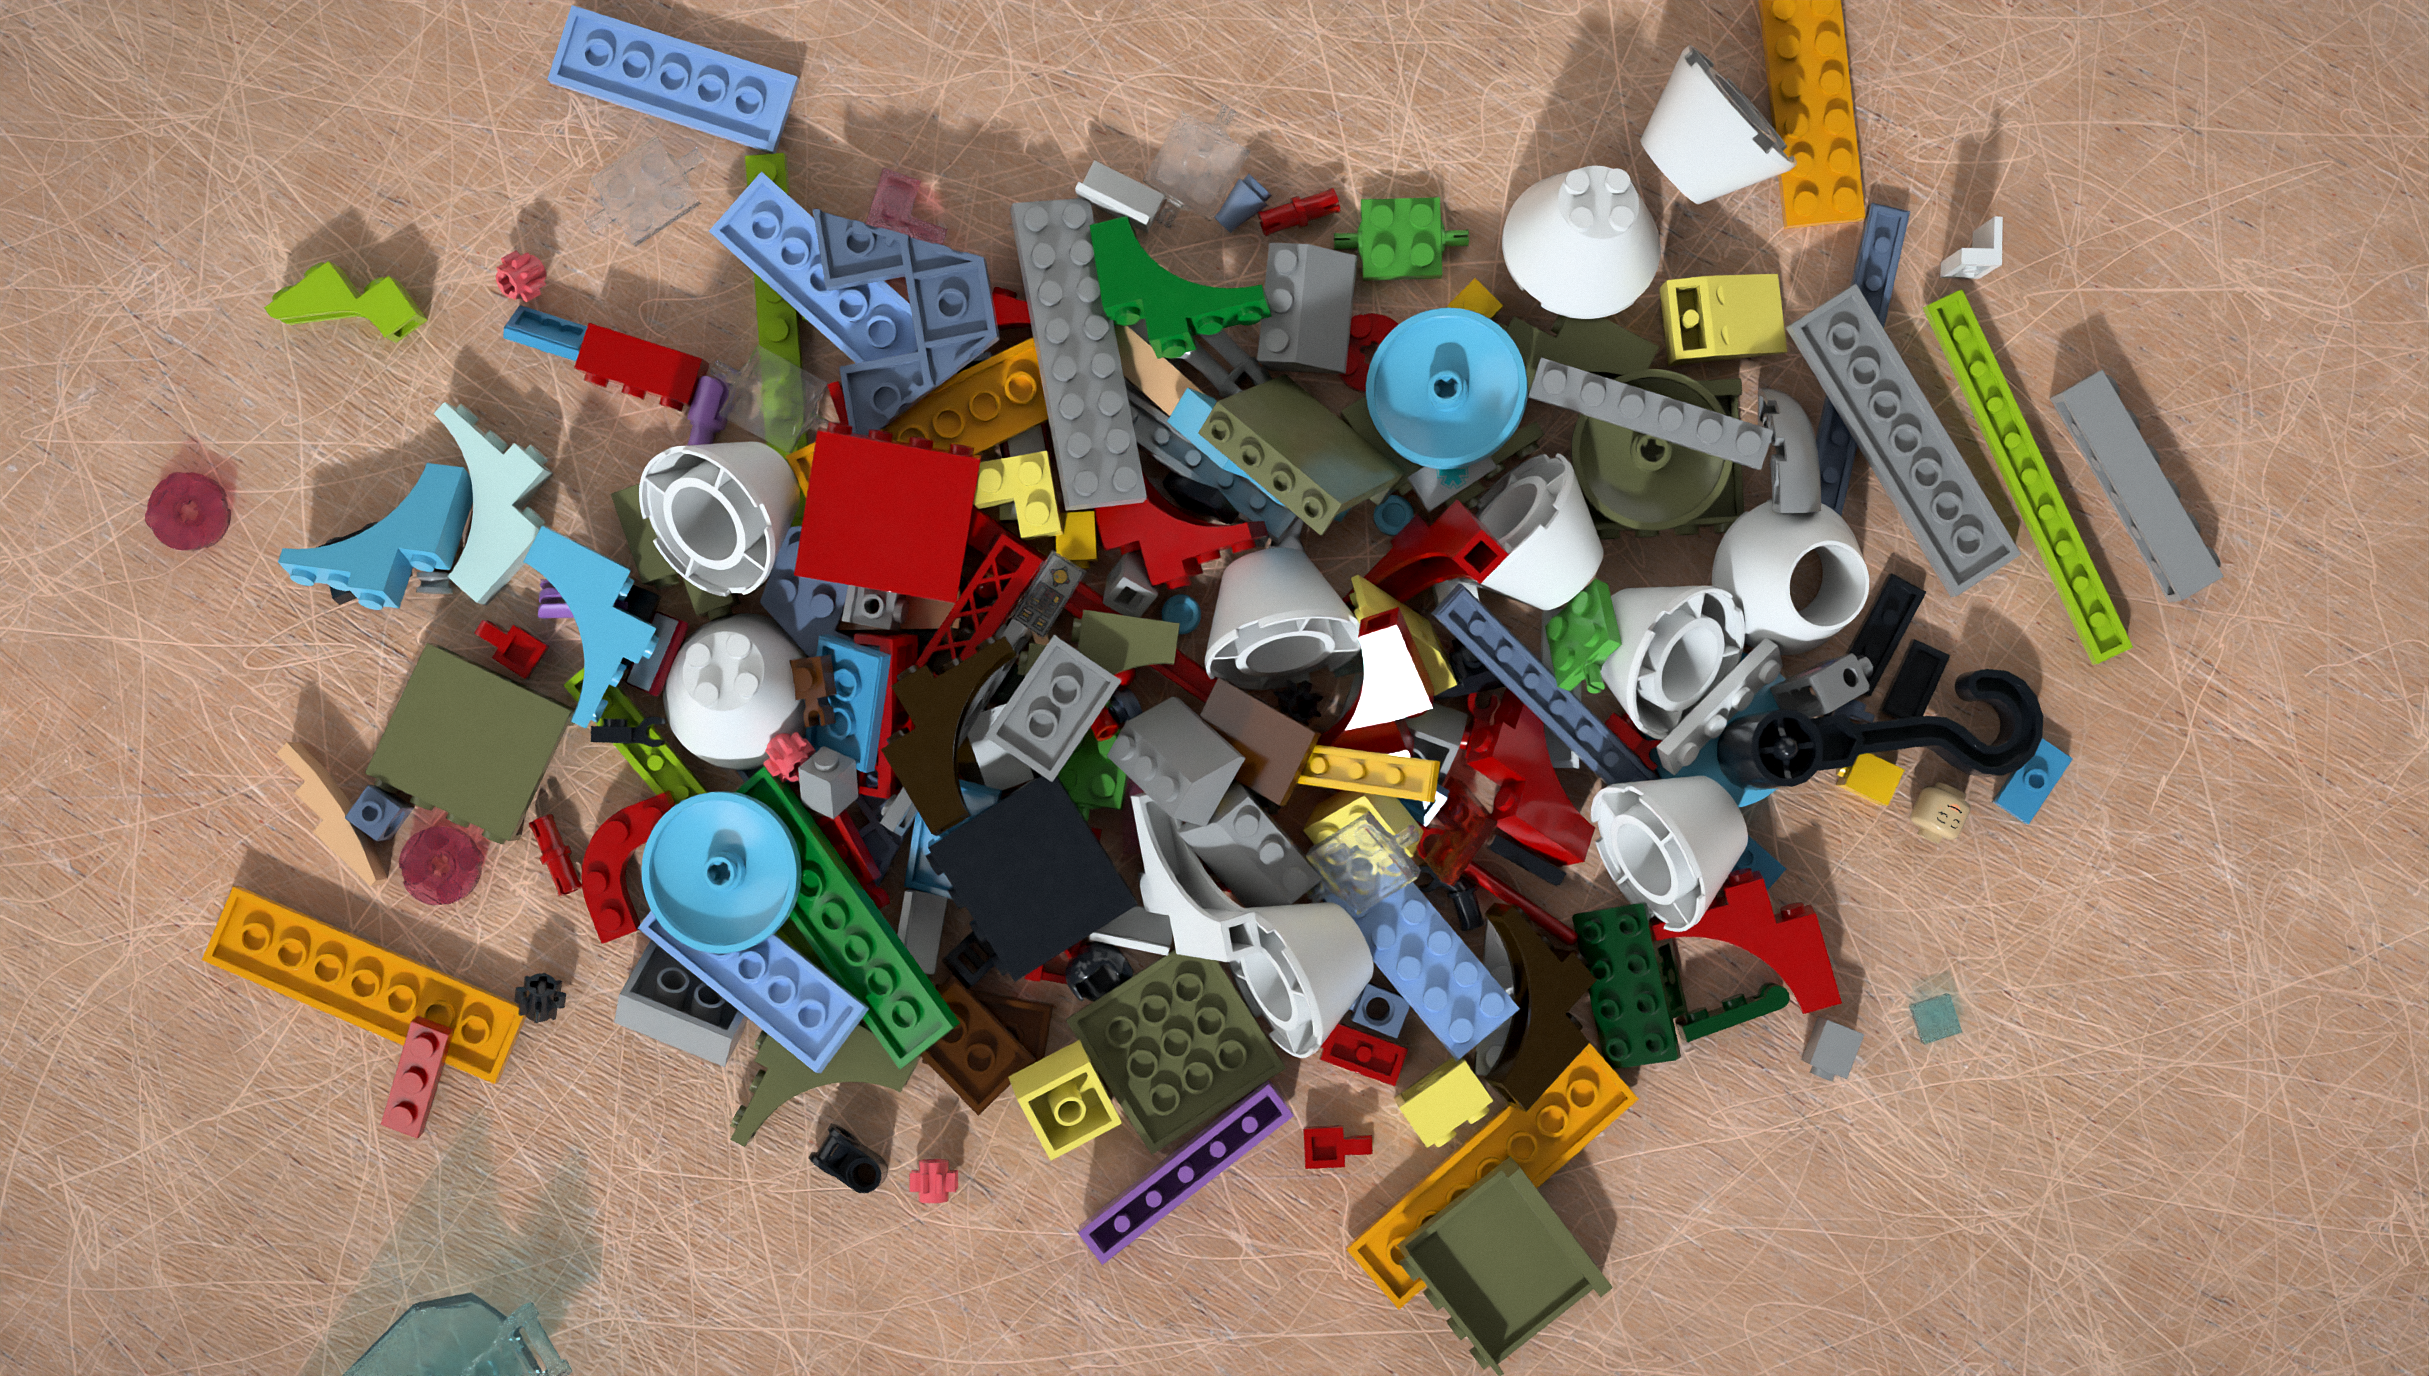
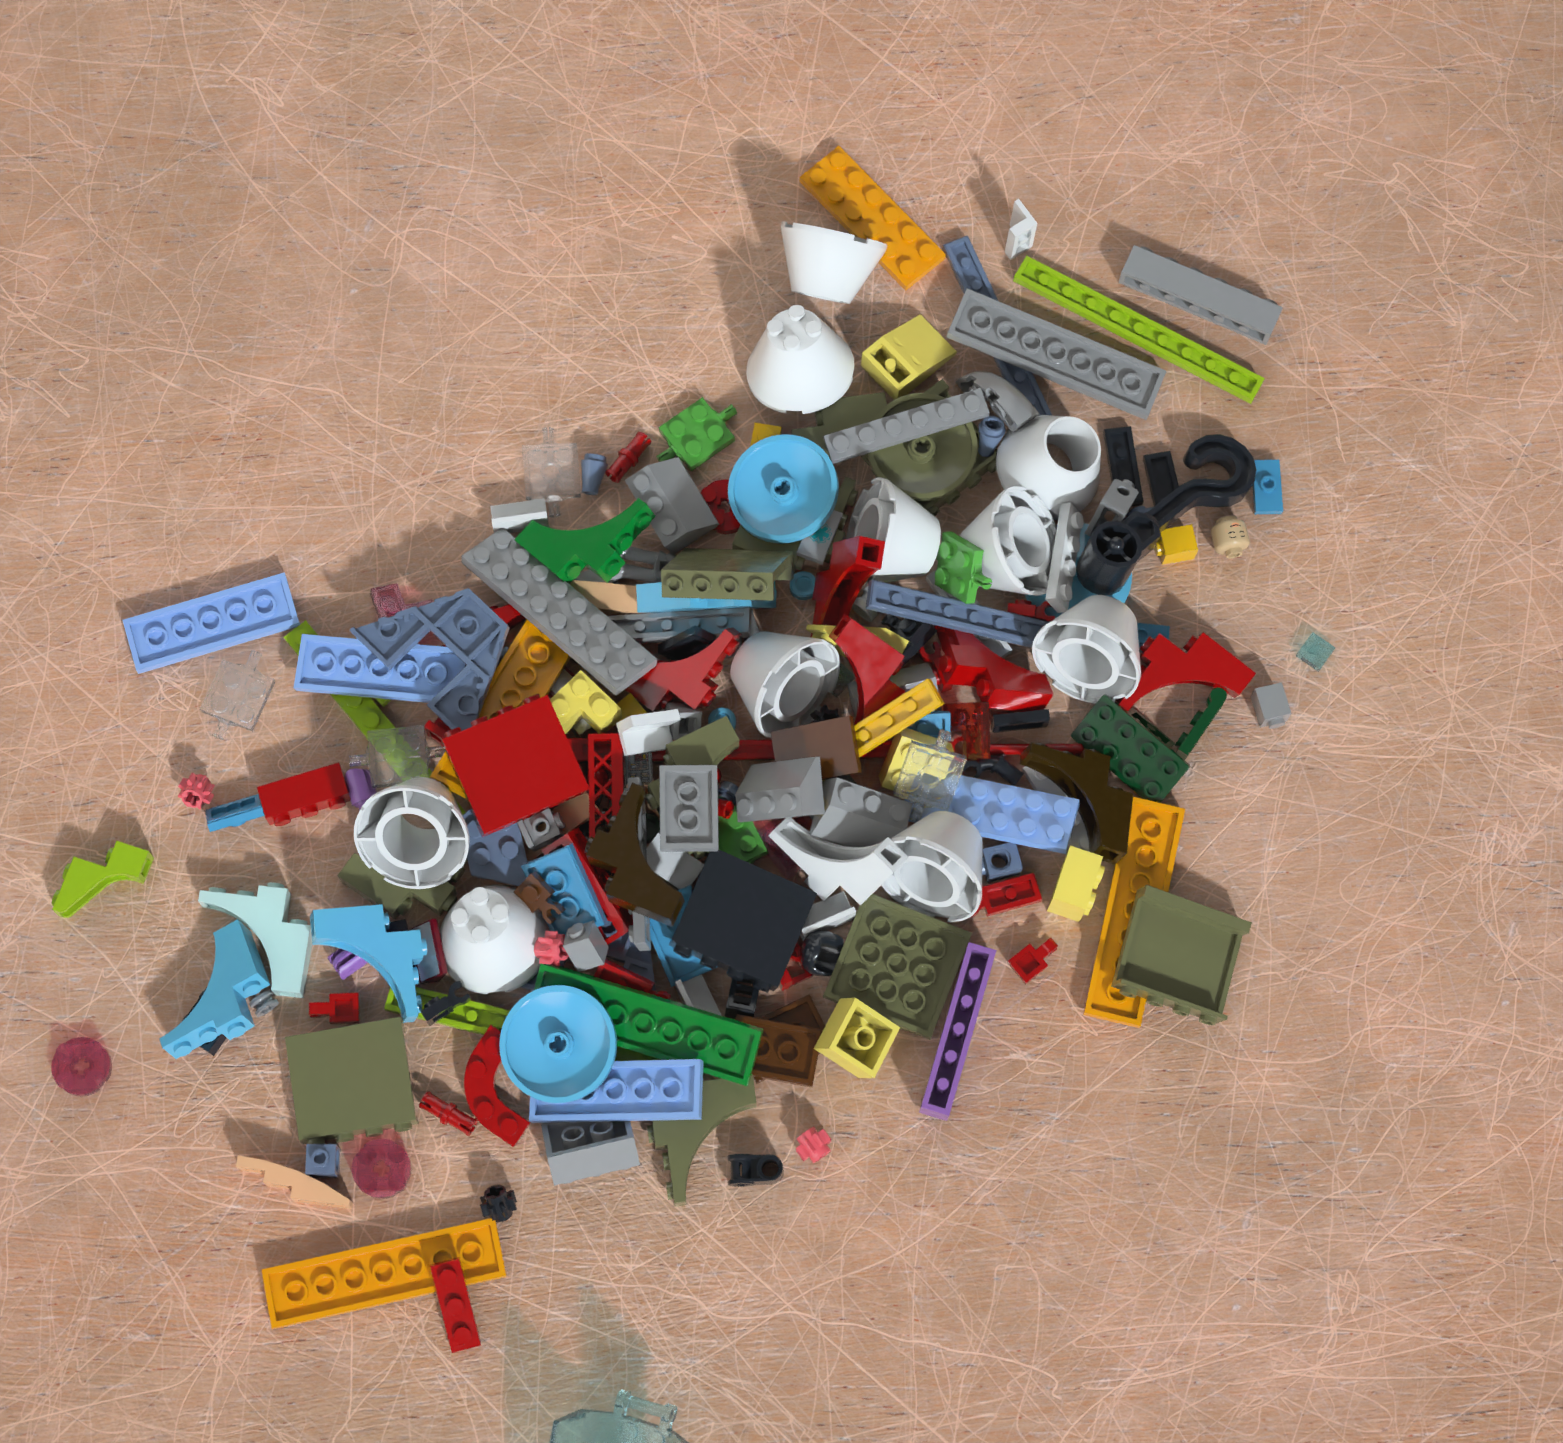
camera: 40 degrees left, 15 degrees down
(1073, 579) = (646, 731): none -> white panel
(1746, 490) = (990, 433): none -> sand blue cone

